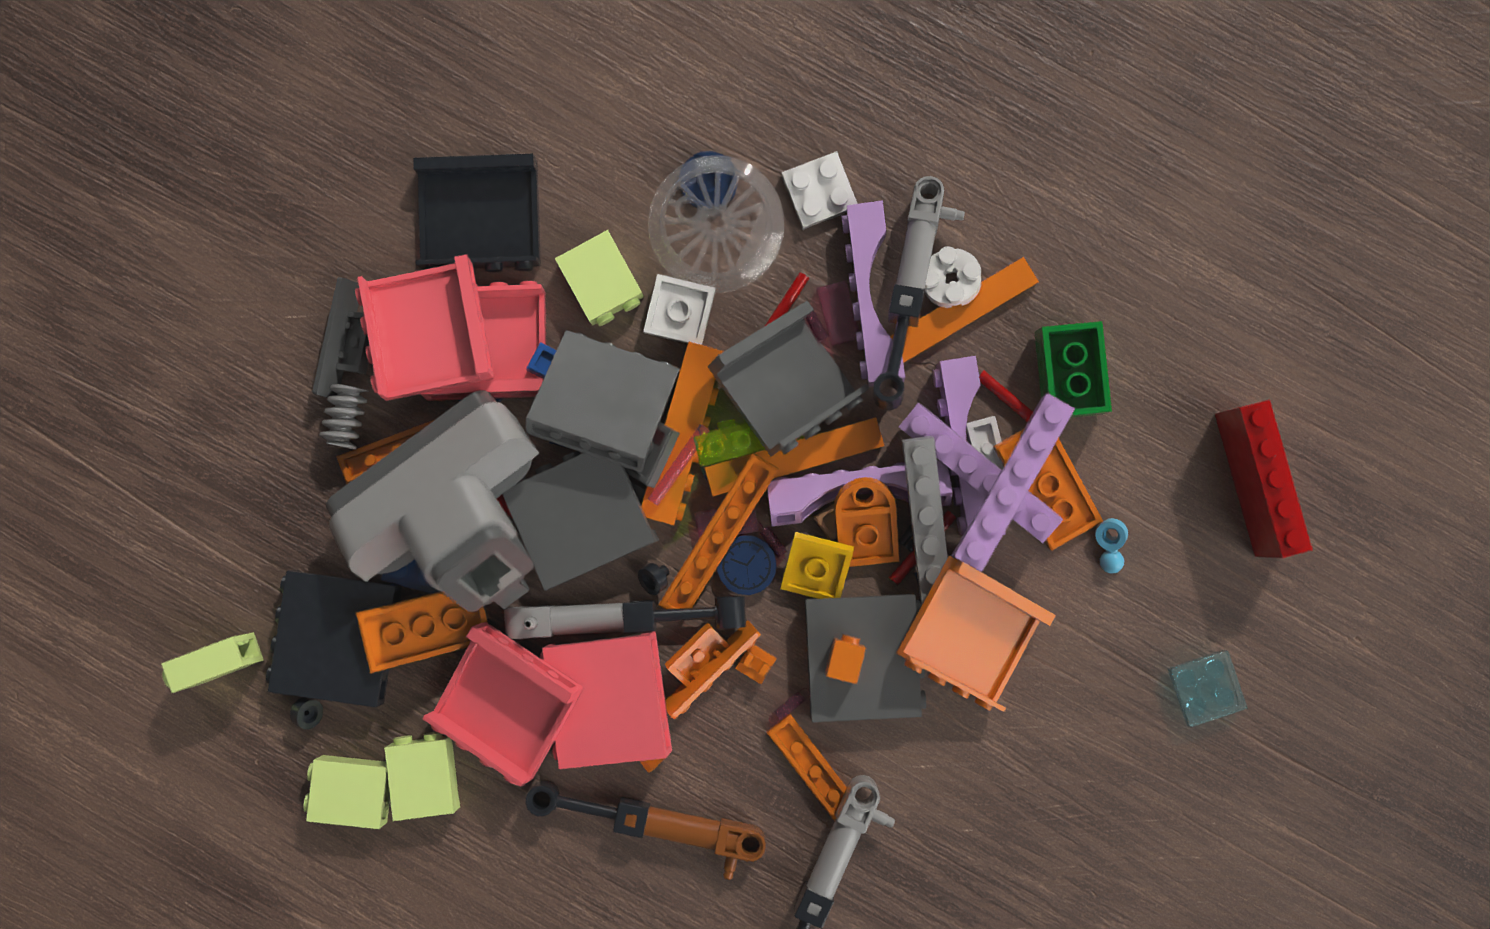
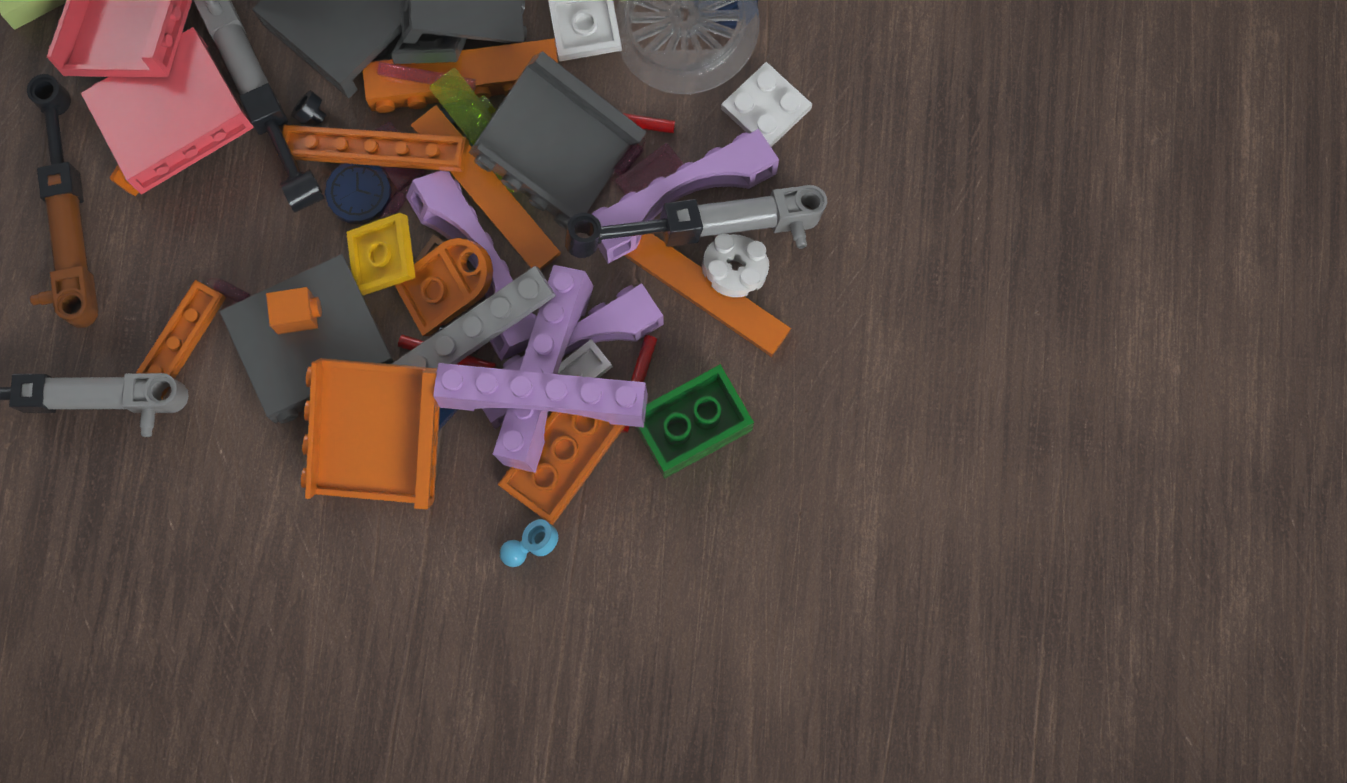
camera: 70 degrees right, 10 degrees down
(703, 662) = (245, 186): orange bracket -> none
(756, 663) = (262, 241): orange tile -> none
(1207, 688) = (417, 709): clear light blue plate -> none
(1263, 481) = (661, 663): red brick -> none

